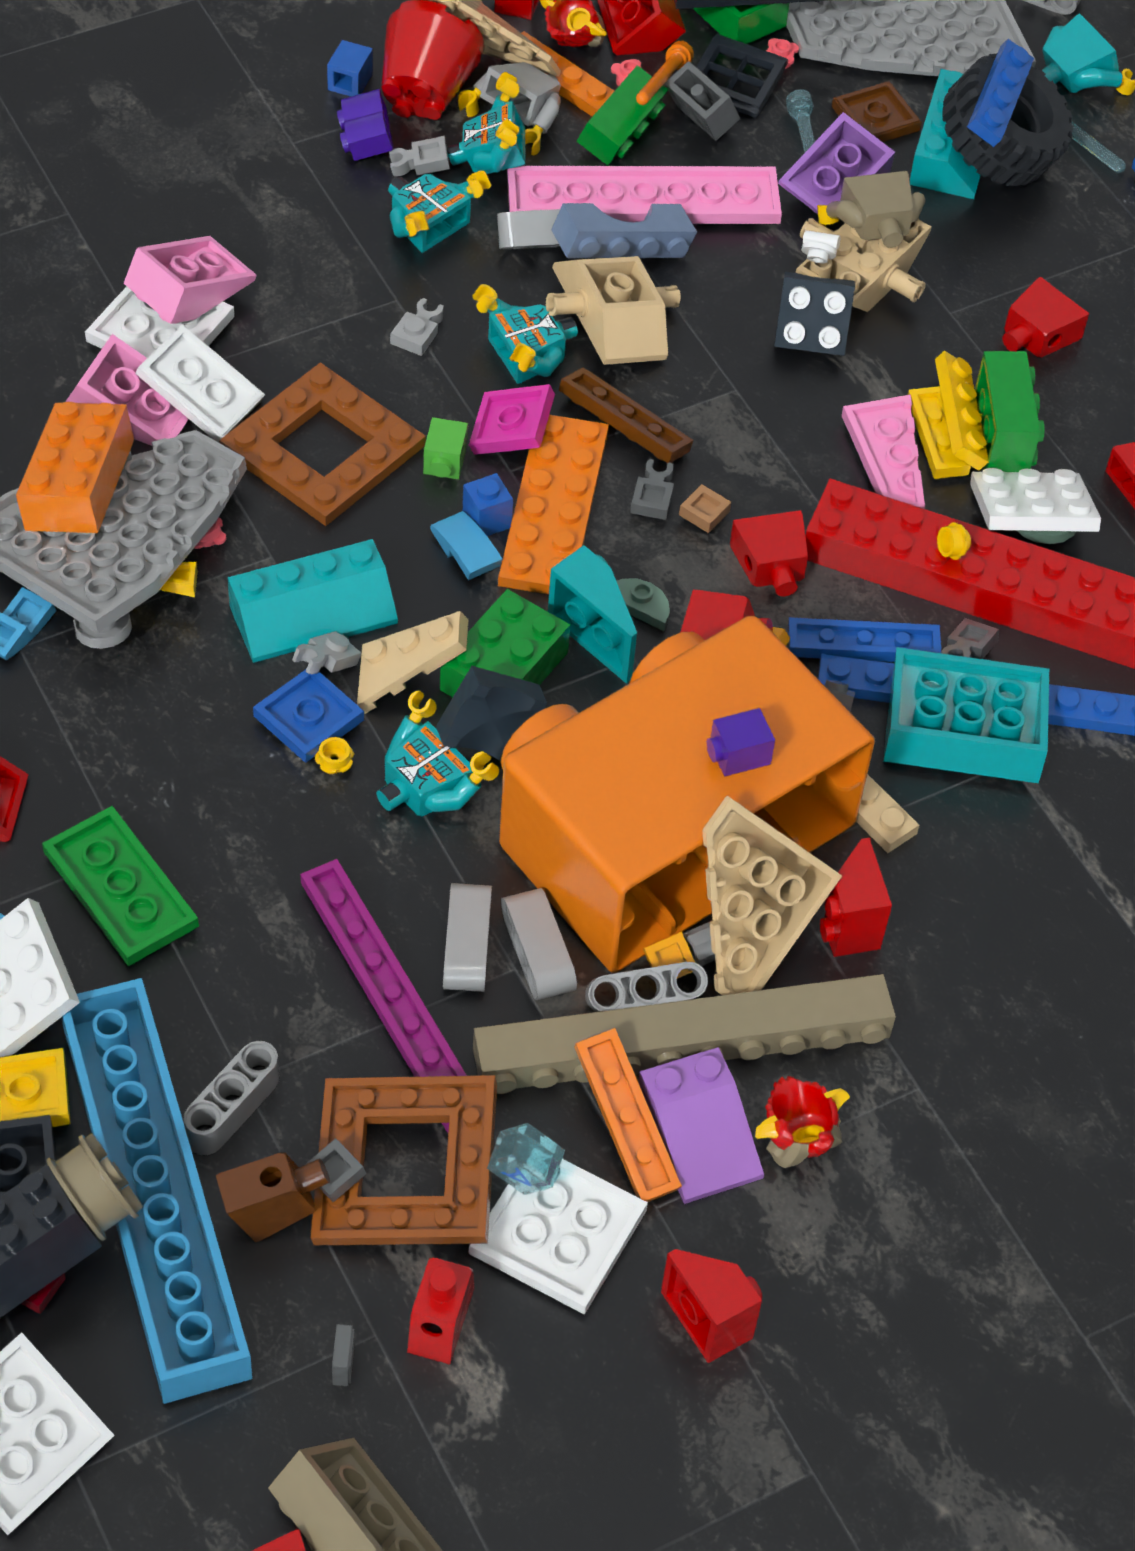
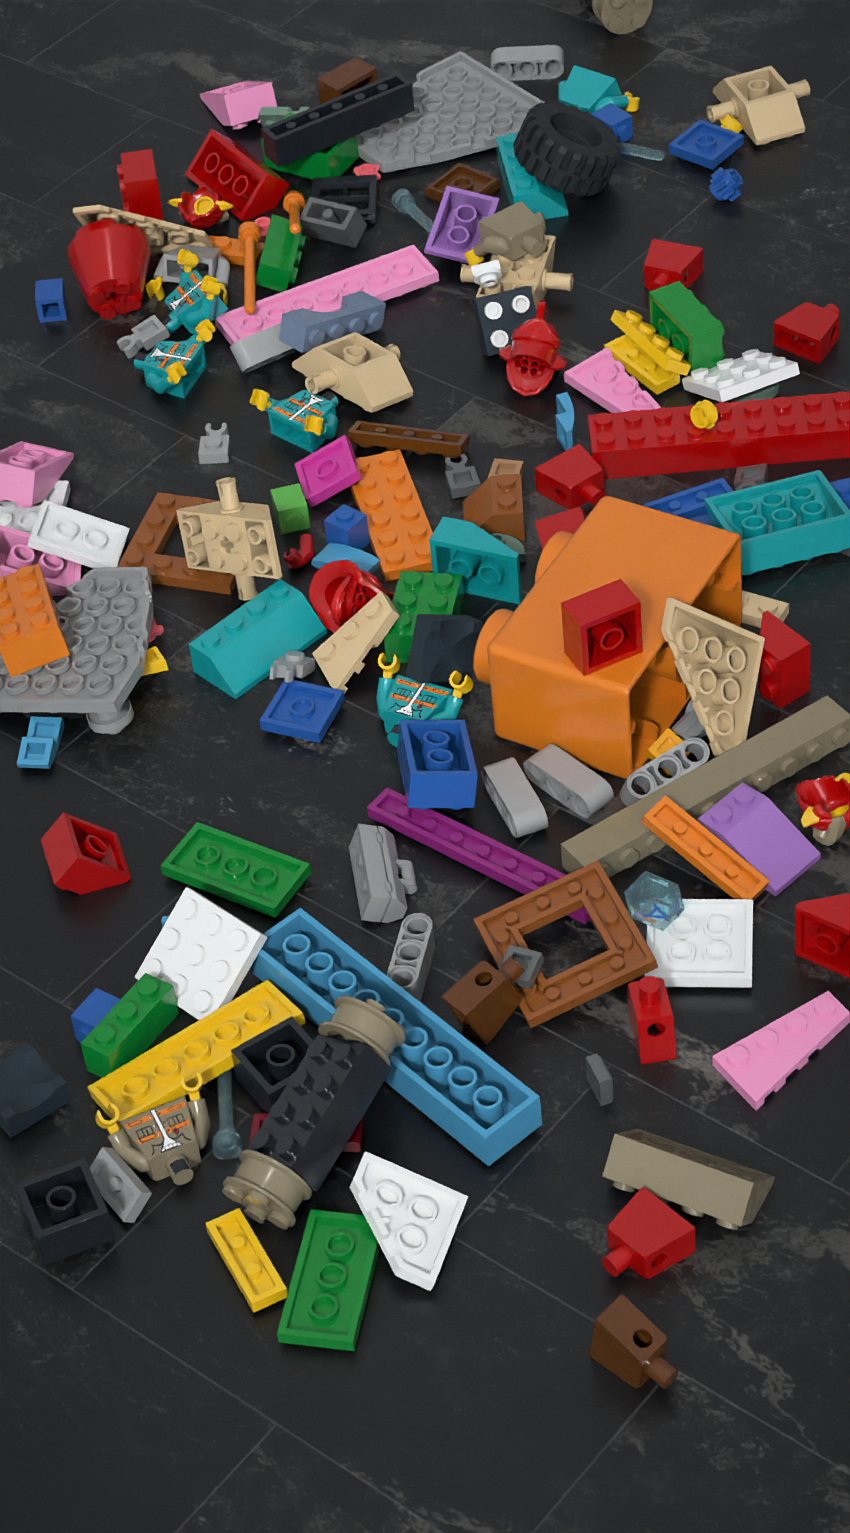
camera: 15 degrees left, 10 degrees down
(258, 972) = (376, 874): none -> light grey piece
(336, 748) = (339, 728): yellow plate -> none
(343, 468) = (231, 538): none -> tan slope
(365, 125) = (88, 330): dark purple brick -> none
(399, 858) = (436, 764): none -> blue brick
(431, 512) = (300, 557): none -> red arm
(431, 588) = (341, 591): none -> red helmet
(557, 1413) = (773, 1052): none -> bright pink wing
(600, 81) = (249, 236): none -> orange piece
(629, 800) = (602, 627): none -> red brick
(666, 552) = (497, 506): none -> dark orange slope
(741, 742) = (653, 567): dark purple brick -> none
(808, 473) = (565, 421): none -> dark azure slope
(826, 361) = (535, 342): none -> red helmet
(1000, 92) = (558, 125): blue plate -> none
(1087, 104) = (617, 120): none -> blue brick

